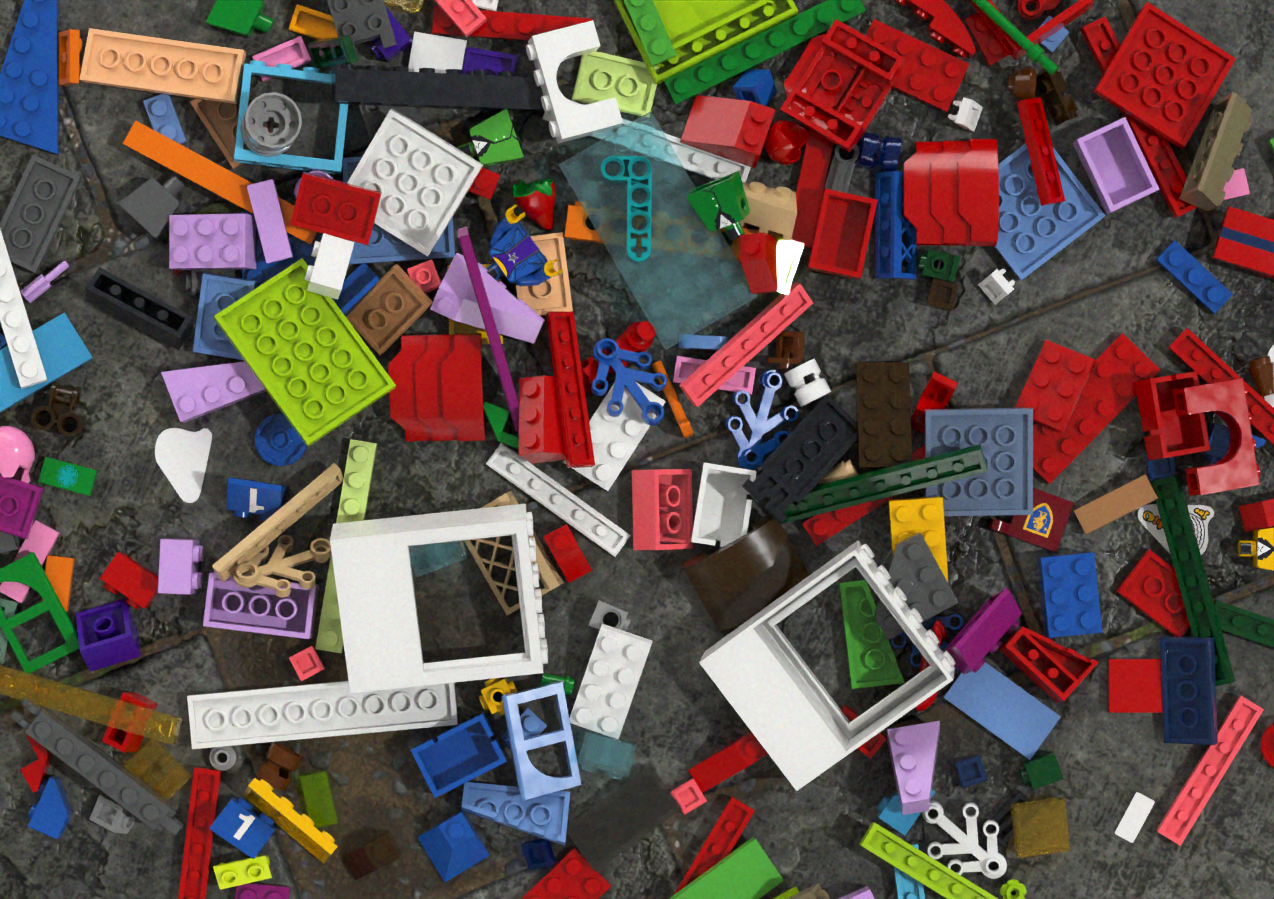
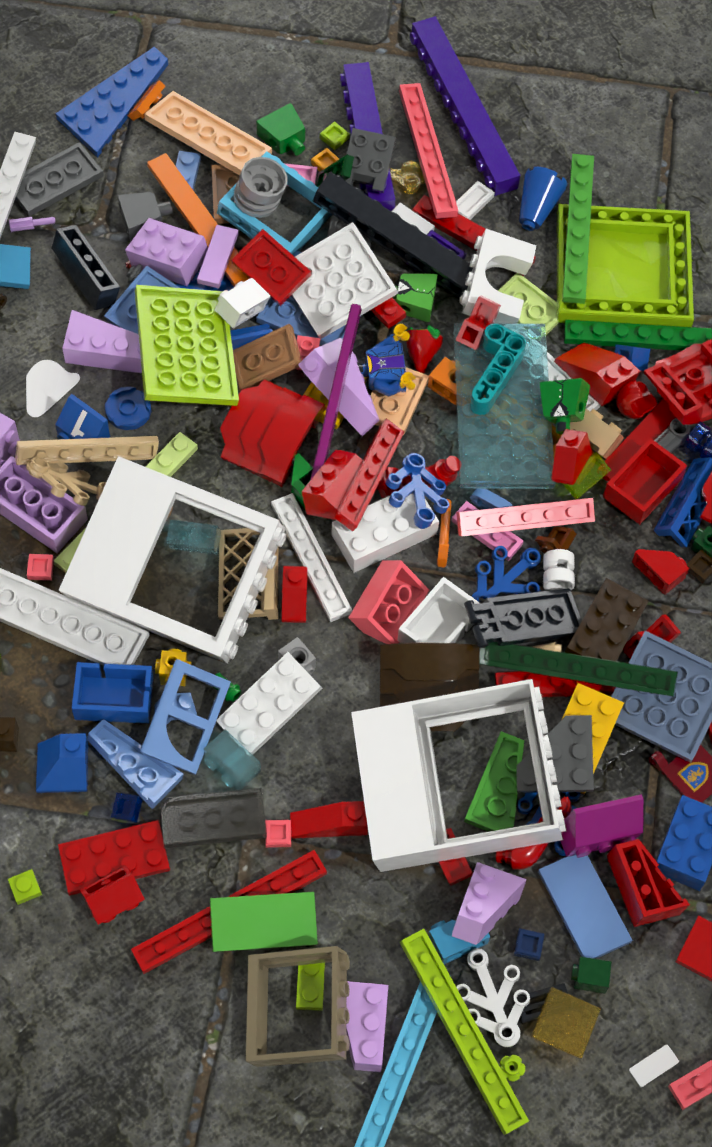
camera: 30 degrees right, 25 degrees down
(586, 157) = (473, 328): none -> red slope
(906, 320) = (661, 568): none -> red slope

